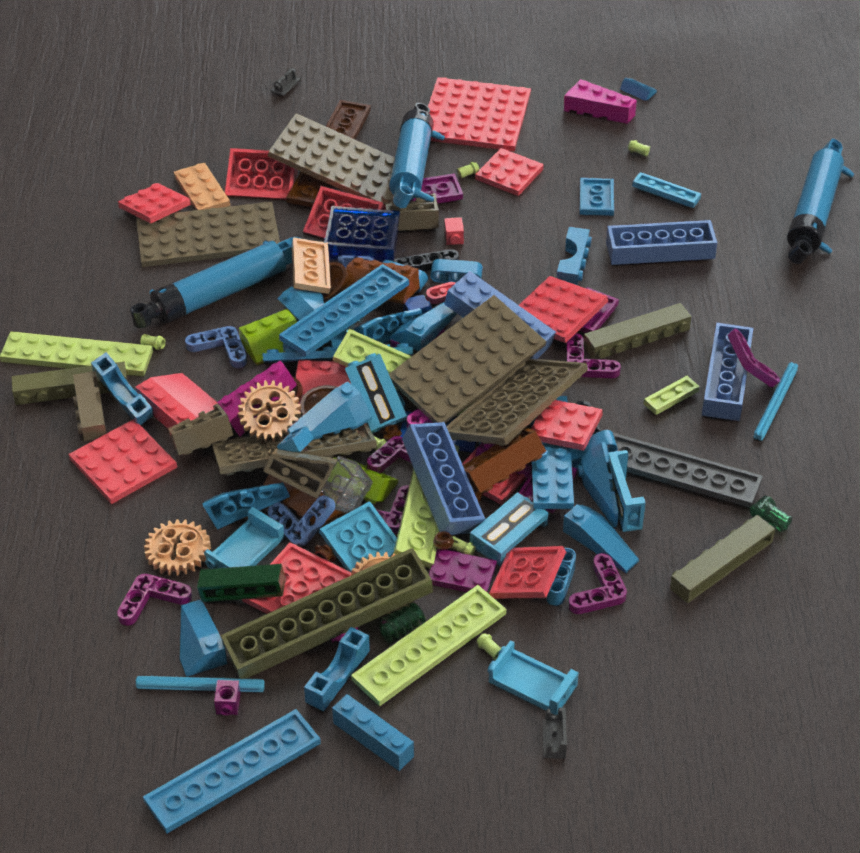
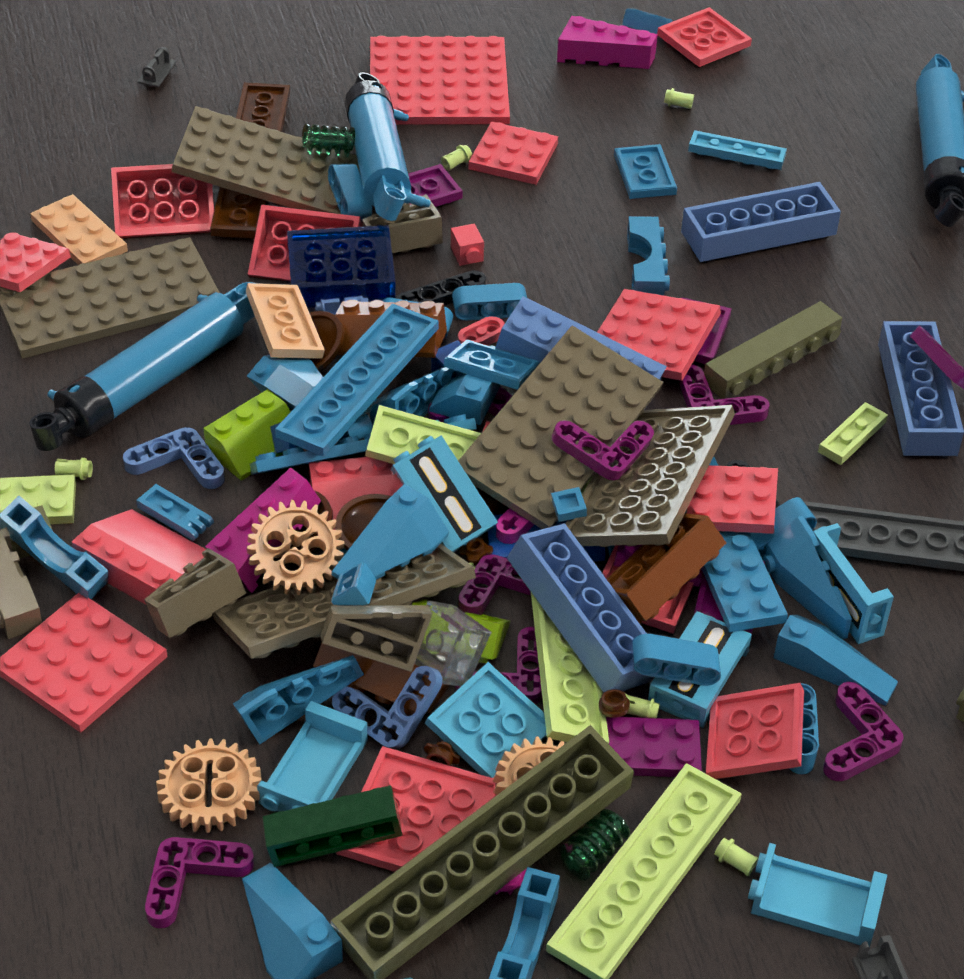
camera: 15 degrees left, 0 degrees up
(207, 378) = (174, 512): none -> dark azure hinge
(375, 146) = (328, 139): none -> clear green piece
(381, 181) = (349, 190): none -> dark azure beam
(435, 312) = (491, 364): none -> dark azure tile
(454, 411) = (568, 504): none -> dark azure plate
(488, 382) = (604, 455): none -> magenta beam
(488, 519) = (676, 659): none -> dark azure beam
(674, 105) = (704, 37): none -> coral plate

